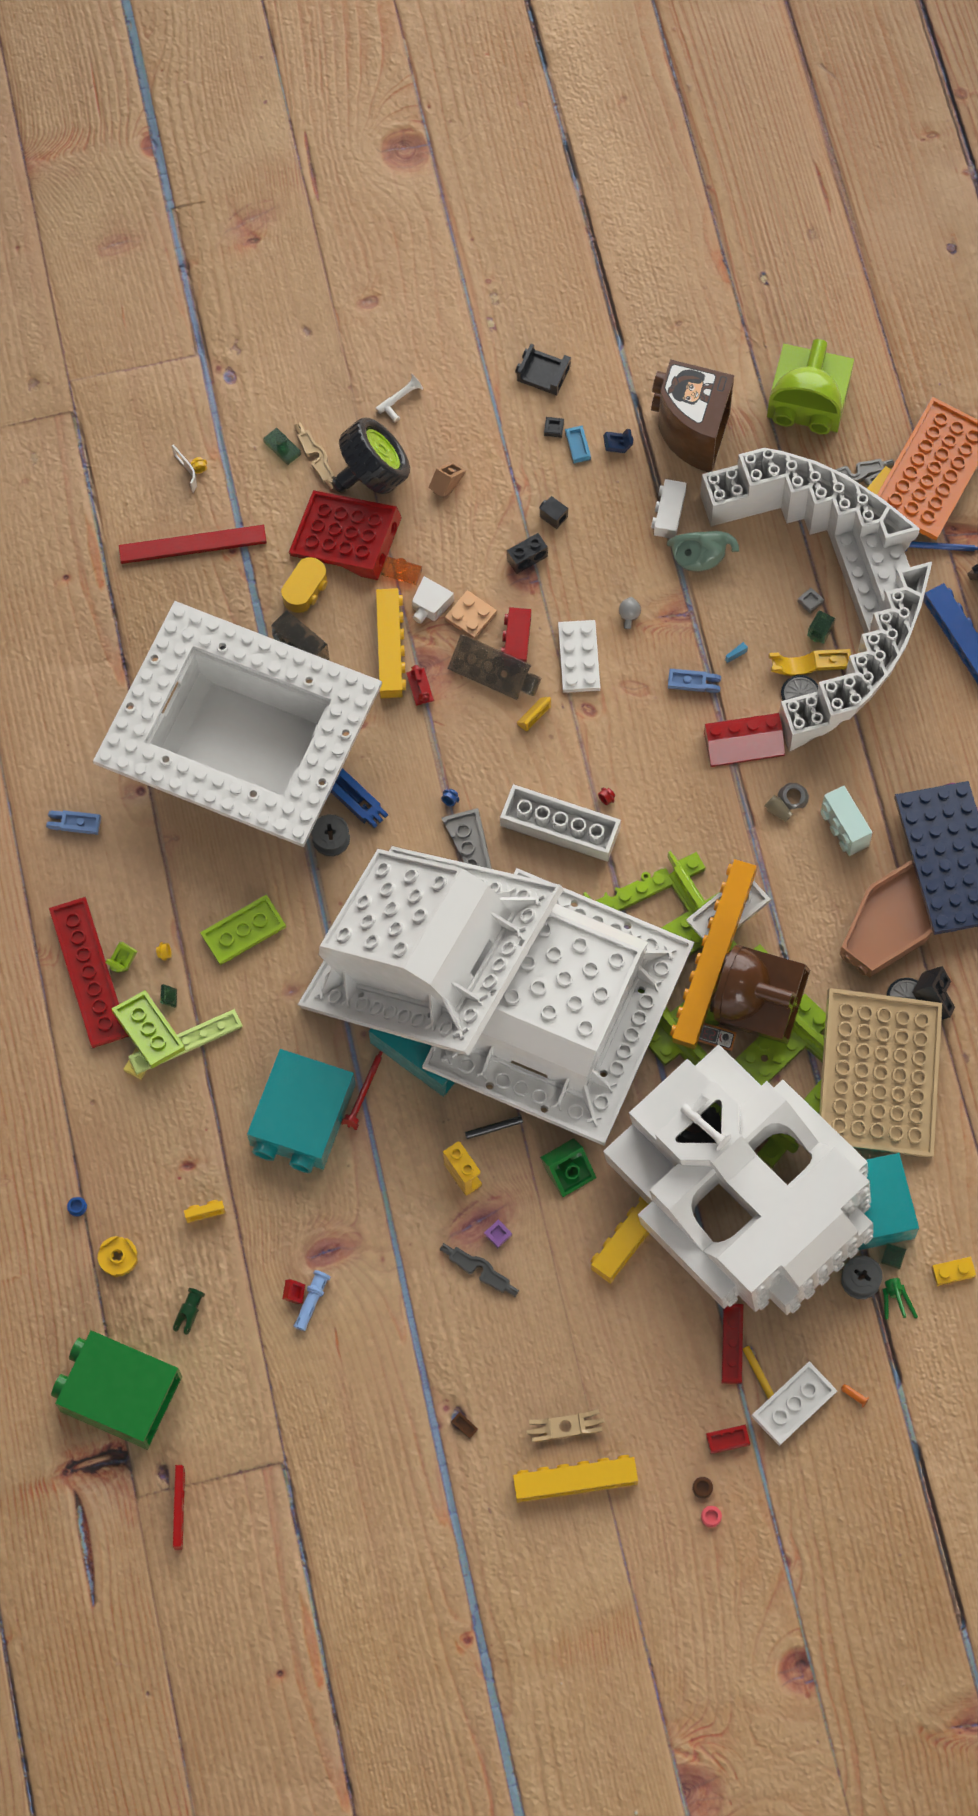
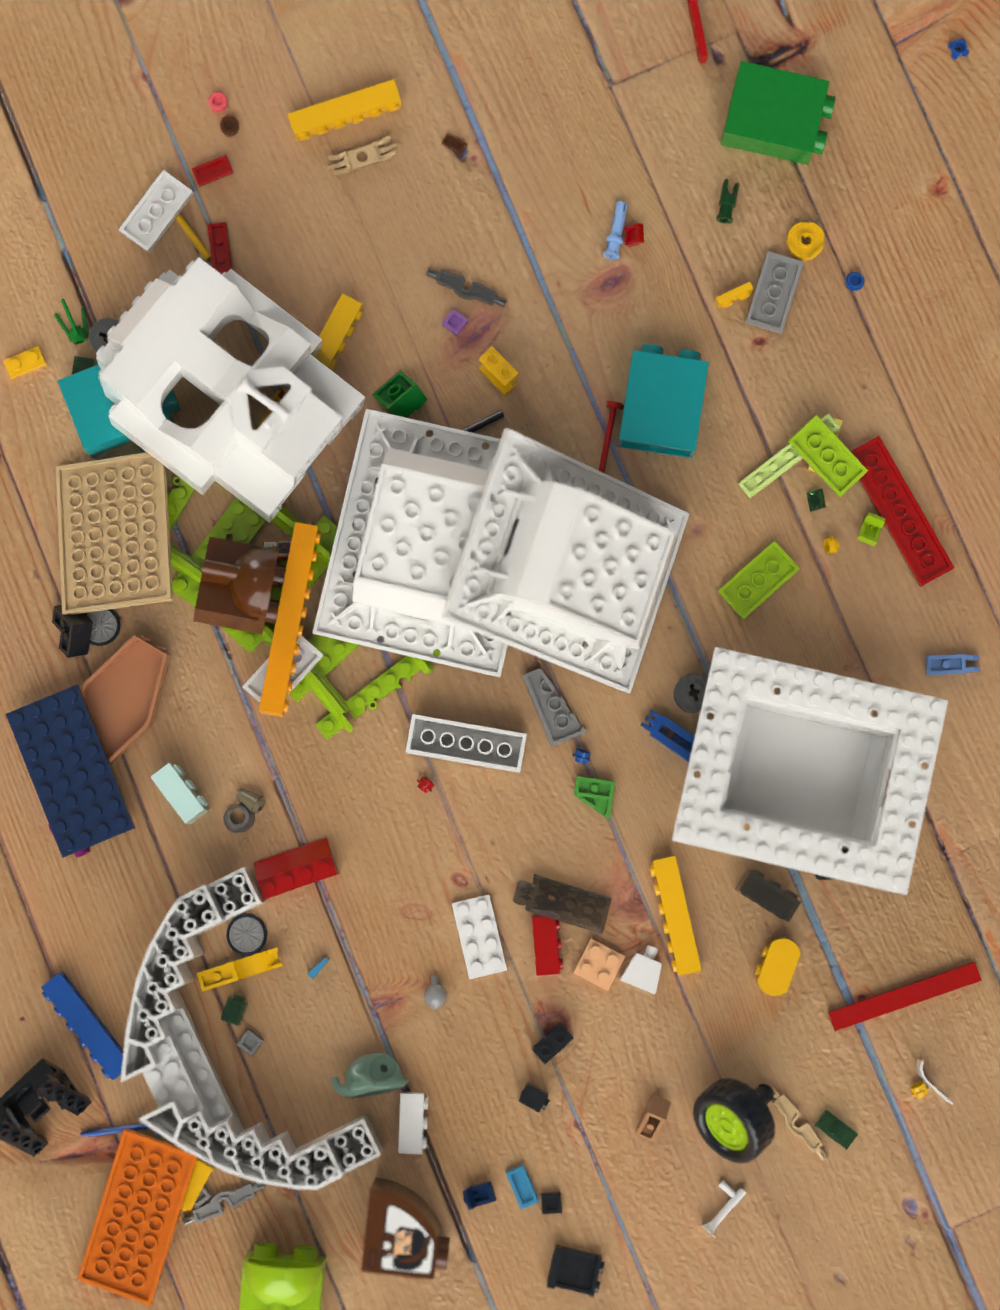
camera: 170 degrees right, 15 degrees up
(162, 1208) = (774, 292): none -> light grey plate
(347, 533) = (747, 1034): red piece -> none
(401, 570) = (680, 1003): clear orange tile -> none
(419, 685) = (635, 873): red hinge -> none
(443, 761) = (595, 793): none -> bright green wing
(534, 713) = (514, 864): yellow slope -> none
(693, 681) = (359, 927): medium blue hinge -> none
(854, 1394) = (101, 231): orange piece -> none

